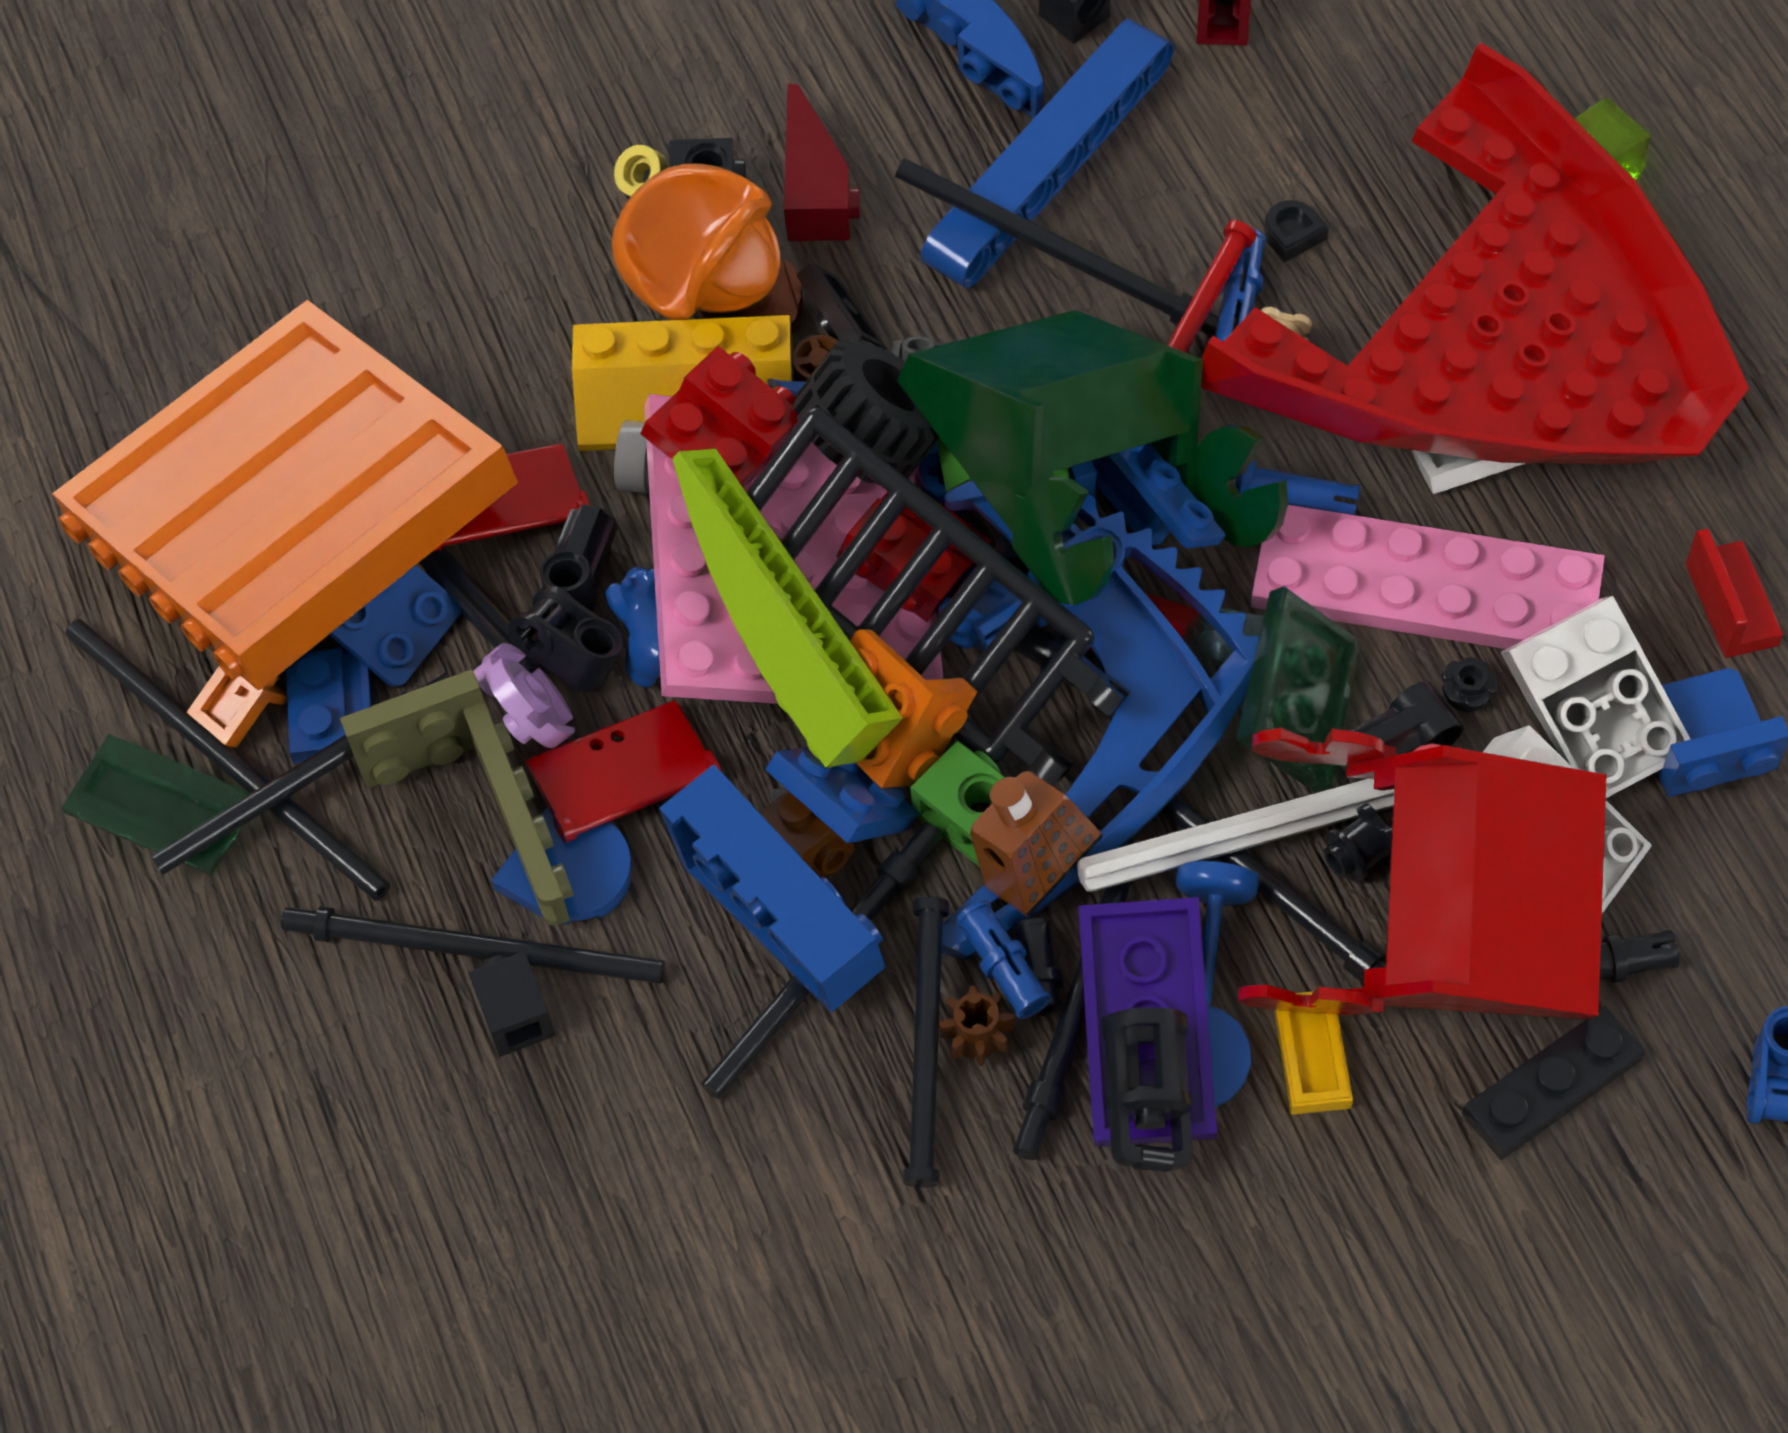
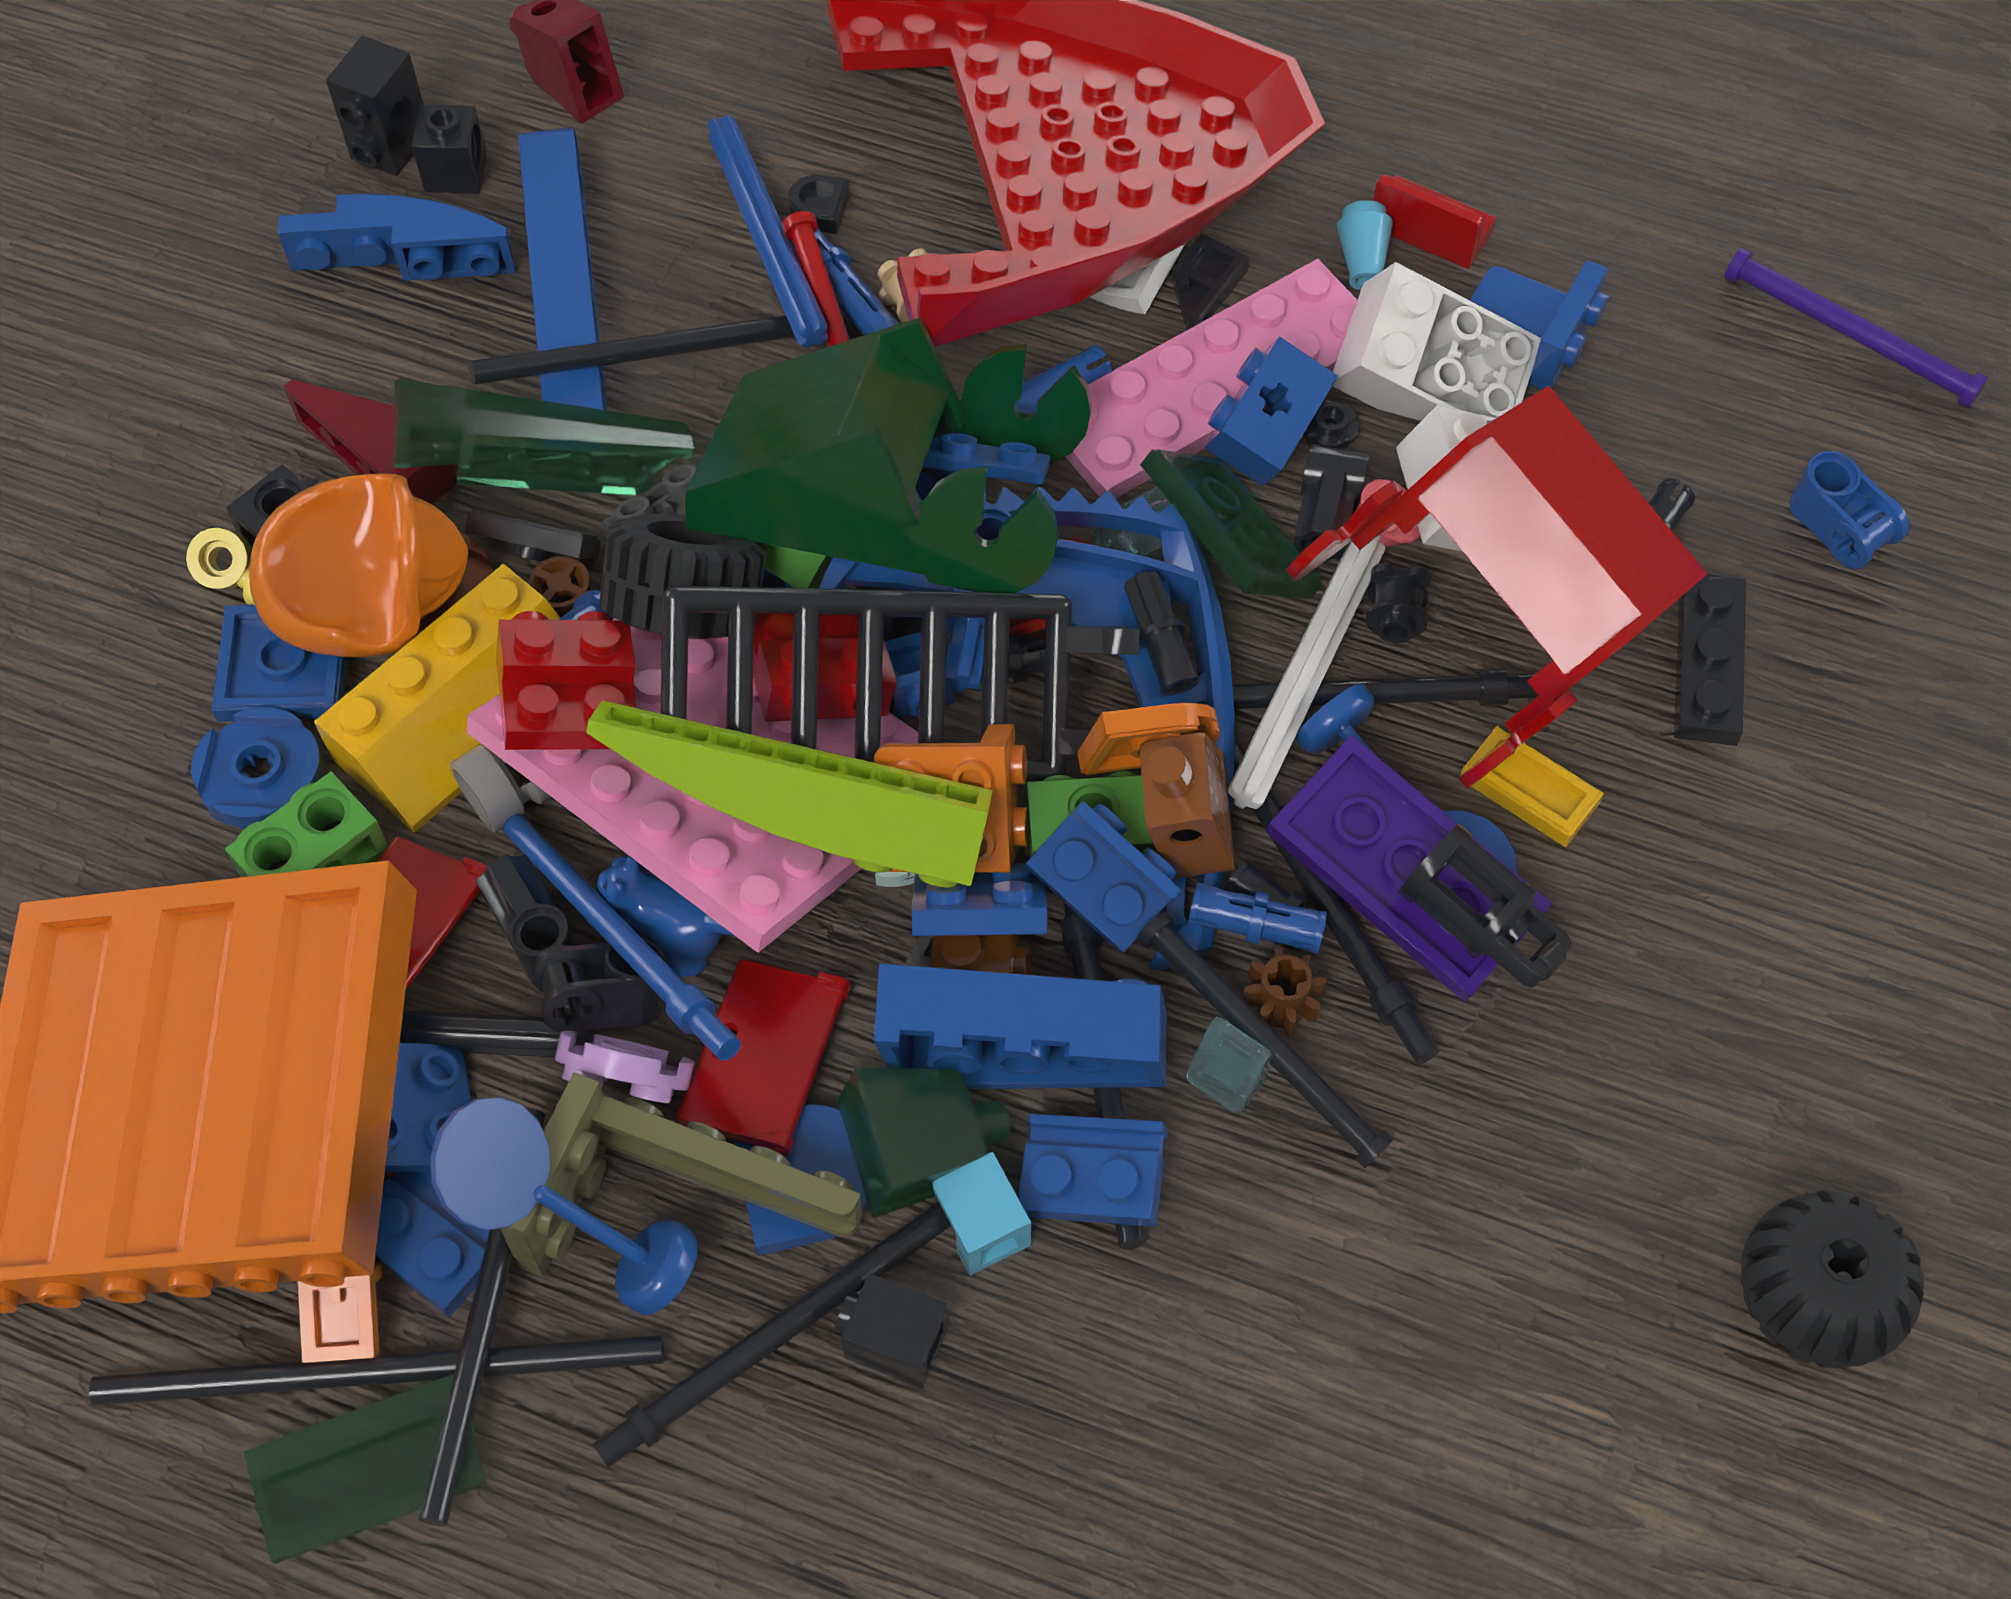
camera: 50 degrees left, 0 degrees up
(359, 680) = (495, 1168): none -> piece
(501, 399) = (296, 833): none -> bright green brick
(532, 356) = (255, 734): none -> blue plate
(584, 687) = (684, 1003): none -> blue bar
(587, 276) = (268, 672): none -> blue plate
(636, 983) = (983, 1213): none -> medium azure panel
(650, 900) = (913, 1130): none -> clear green torso
(731, 1021) = (1093, 1169): none -> blue plate
(889, 1040) = (1229, 1065): none -> clear light blue slope
(899, 245) = (531, 441): none -> clear green wedge
(933, 841) = (1104, 874): none -> blue bracket
(1022, 754) = (1117, 734): none -> orange tile
(1148, 717) = (1161, 633): none -> black axle
(1230, 205) = (768, 232): none -> blue axle
(1455, 637) = (1293, 389): none -> blue brick
(1508, 505) = (1206, 278): none -> black tile
(1655, 571) = (1364, 239): none -> medium azure cone

